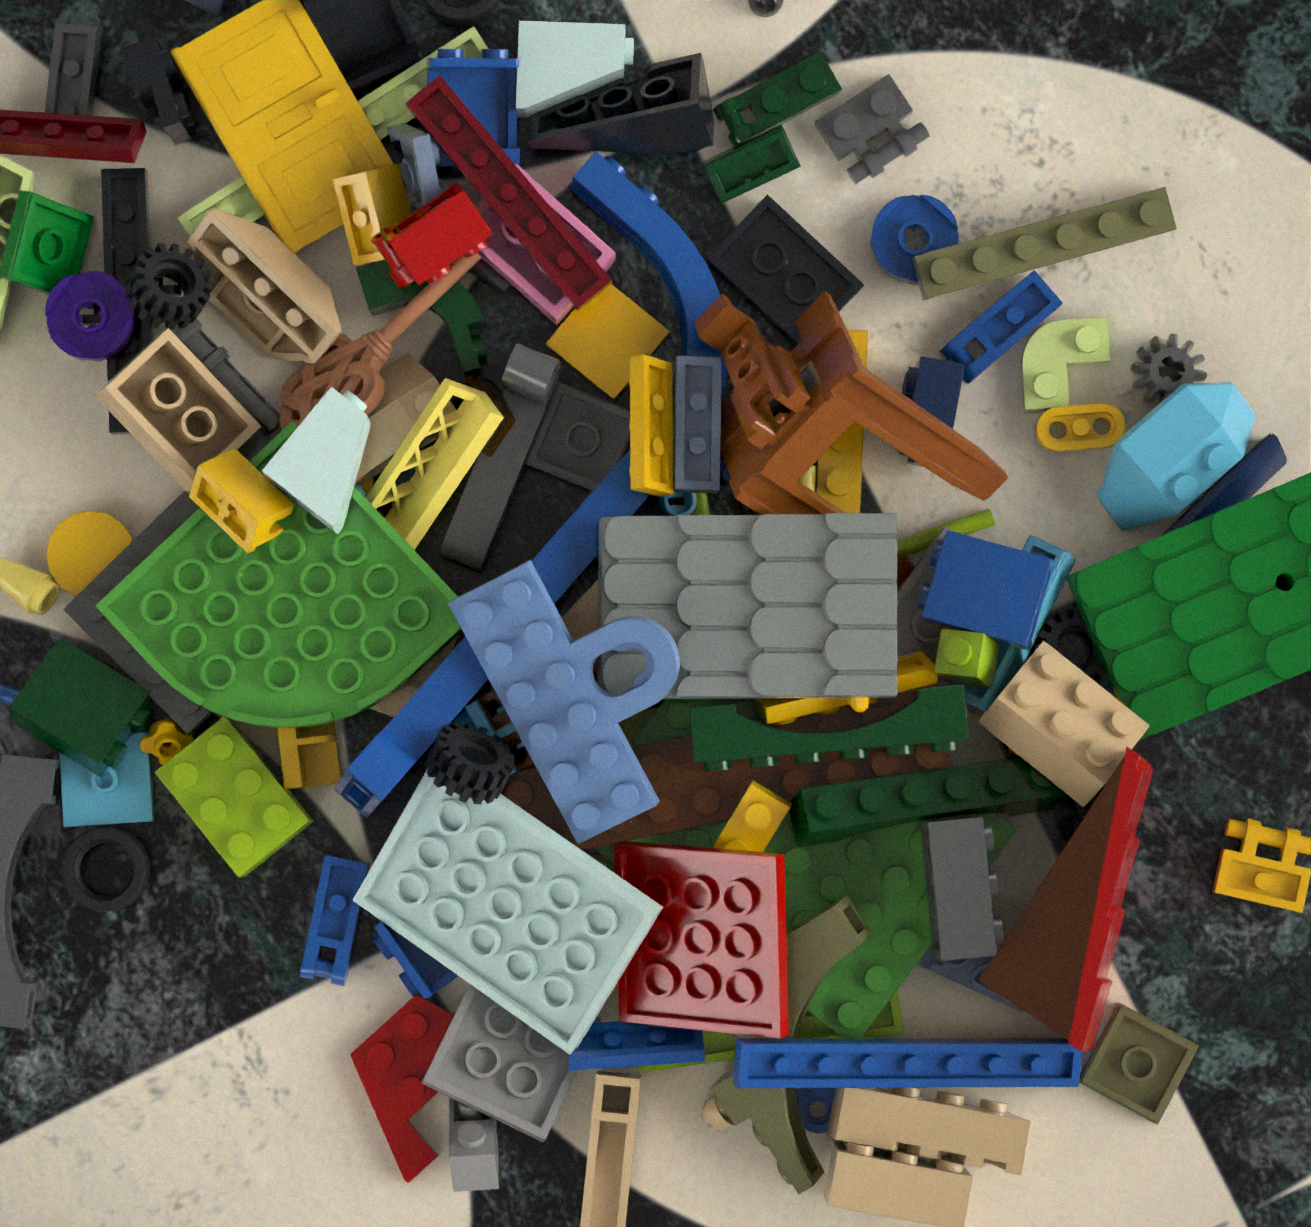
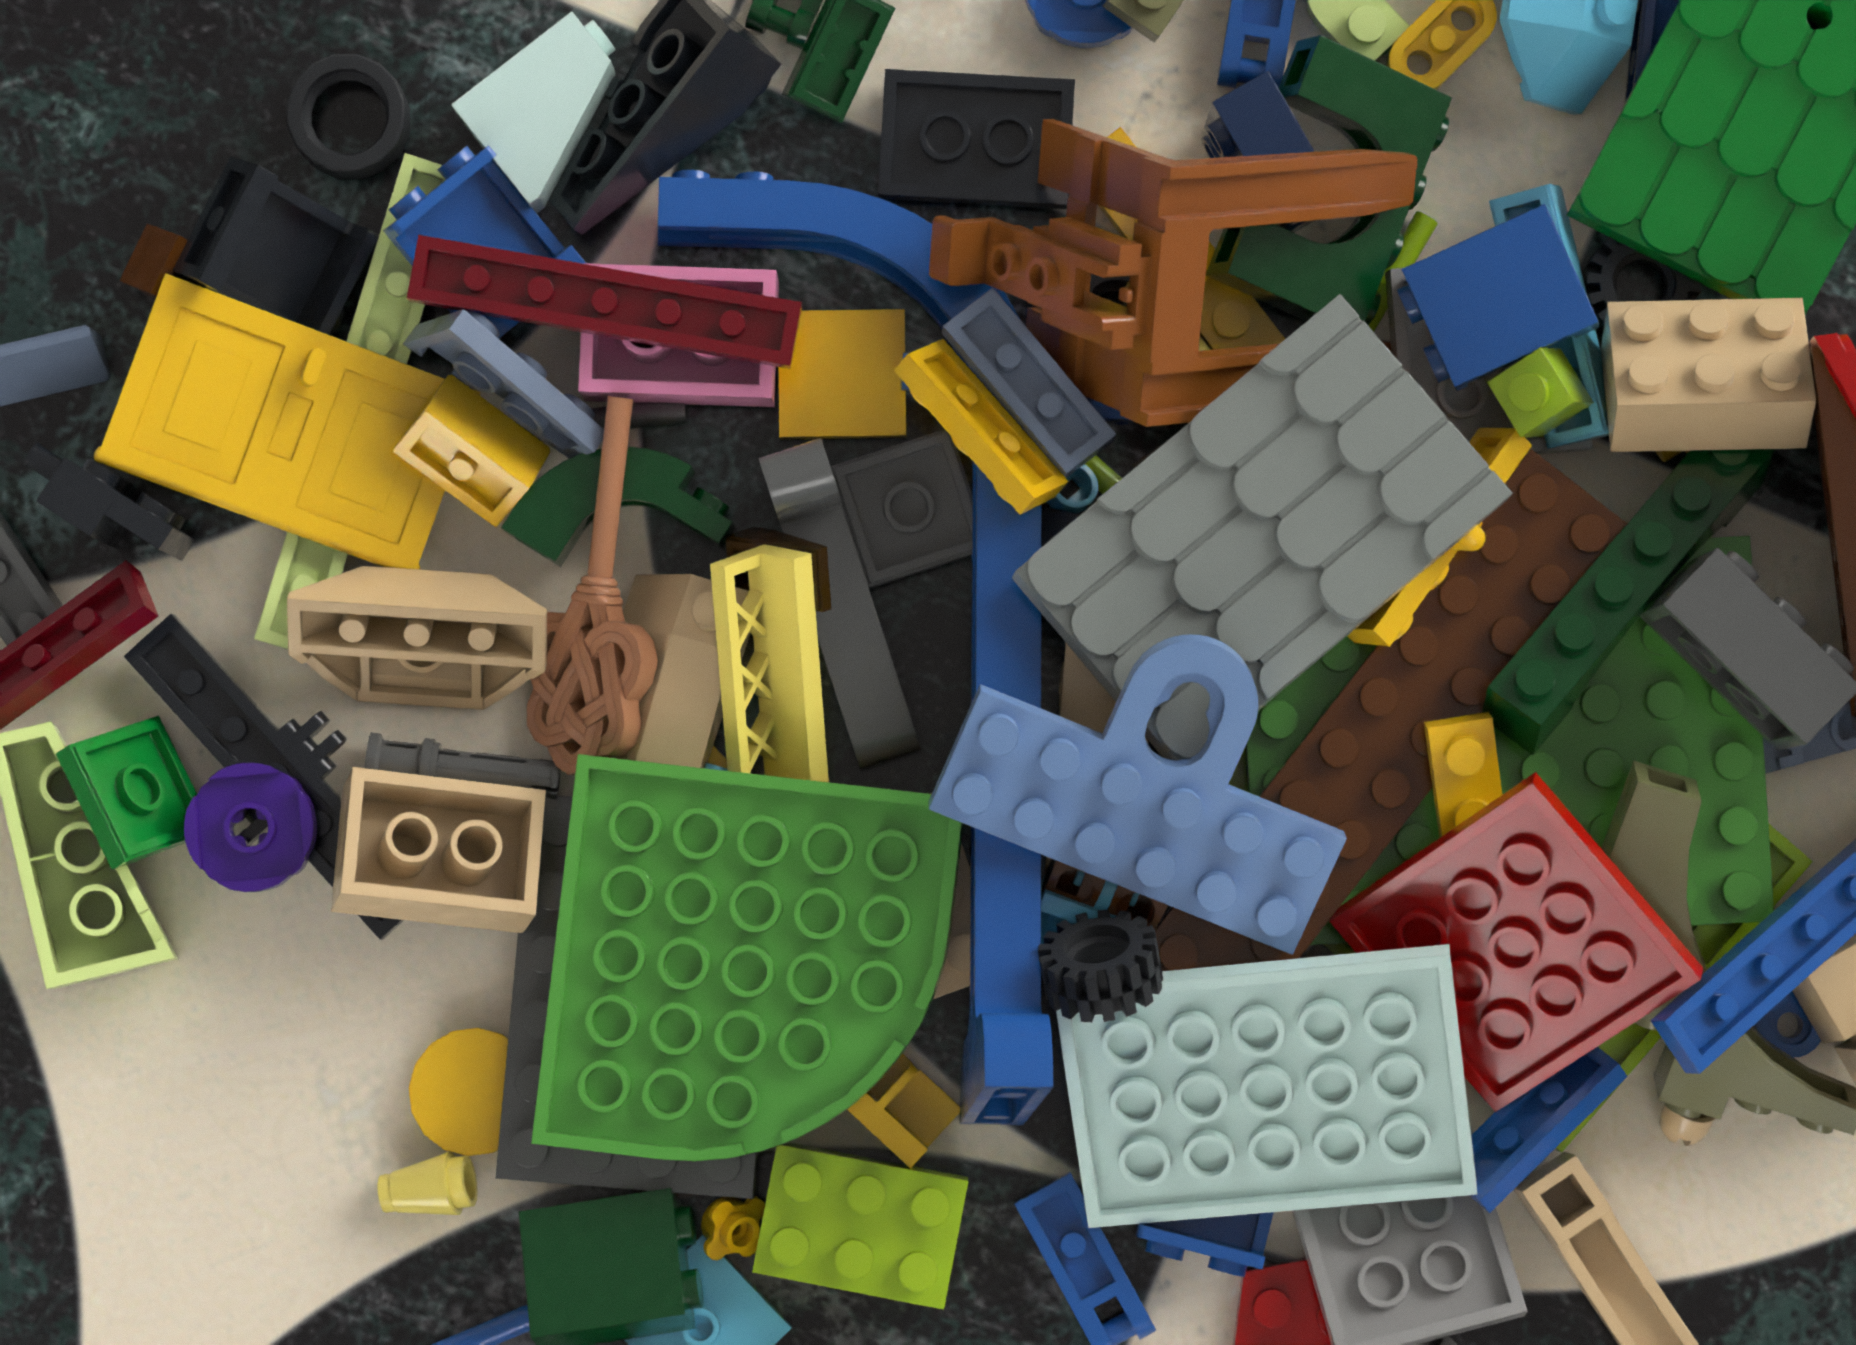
camera: 40 degrees left, 0 degrees up
(181, 270) = (305, 693): black tyre -> none
(240, 499) = (595, 889): yellow hinge -> none
(323, 458) = (649, 765): light aqua slope -> none
(433, 238) = (564, 420): red hinge -> none
(933, 718) = (1561, 488): dark green arch -> none
(1010, 440) = (1374, 112): none -> dark green arch

